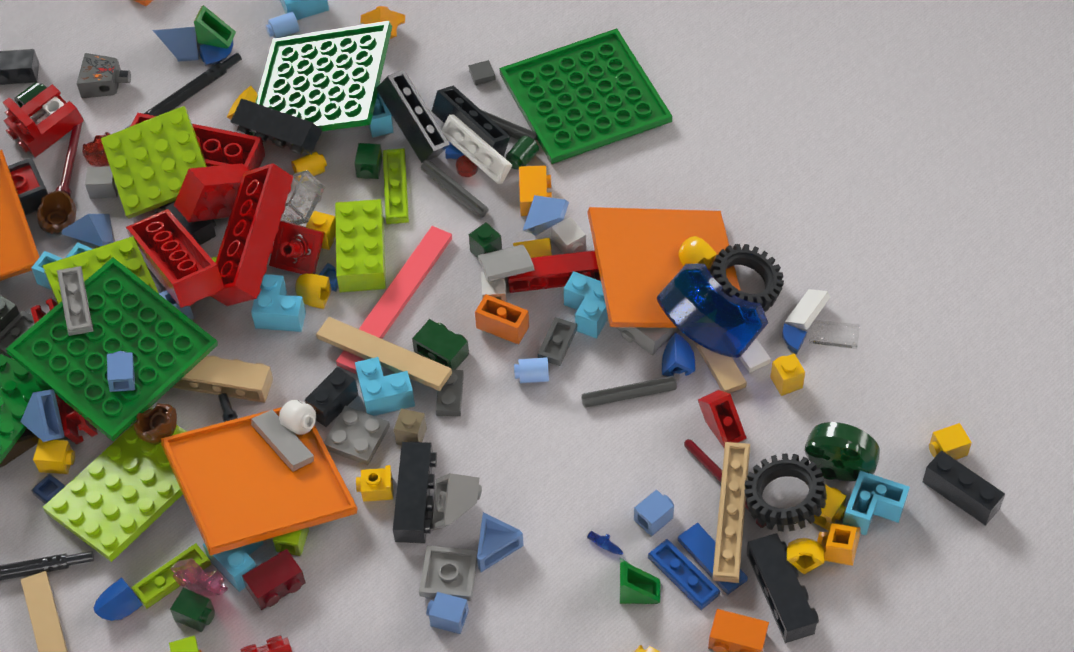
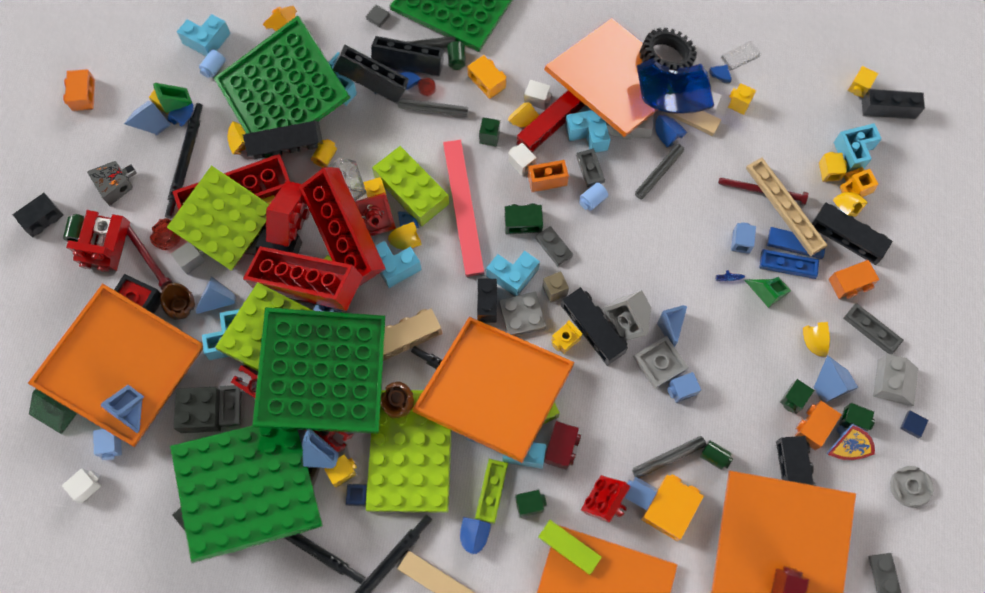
camera: 40 degrees left, 15 degrees up
(74, 300) = (269, 357): light grey tile -> none
(120, 371) = (347, 383): medium blue brick -> none
(191, 575) = (518, 481): clear pink slope -> none
(282, 440) = (486, 351): light grey tile -> none
(297, 417) = (482, 329): white head -> none
(368, 161) = (361, 124): dark green brick -> none
(390, 355) = (490, 248): tan tile -> none
(395, 186) = (391, 128): lime tile -> none
(476, 149) = (428, 71): white tile -> none
(506, 262) = (521, 136): light grey slope -> none
(544, 214) = (514, 87): medium blue slope -> none
(696, 251) = (629, 55): yellow brick -> none
(722, 417) = (728, 150): red slope -> none
(785, 516) = (821, 155): black tyre -> none
(808, 309) = (715, 49): white tile -> none
(842, 451) = (820, 126): dark green piece -> none

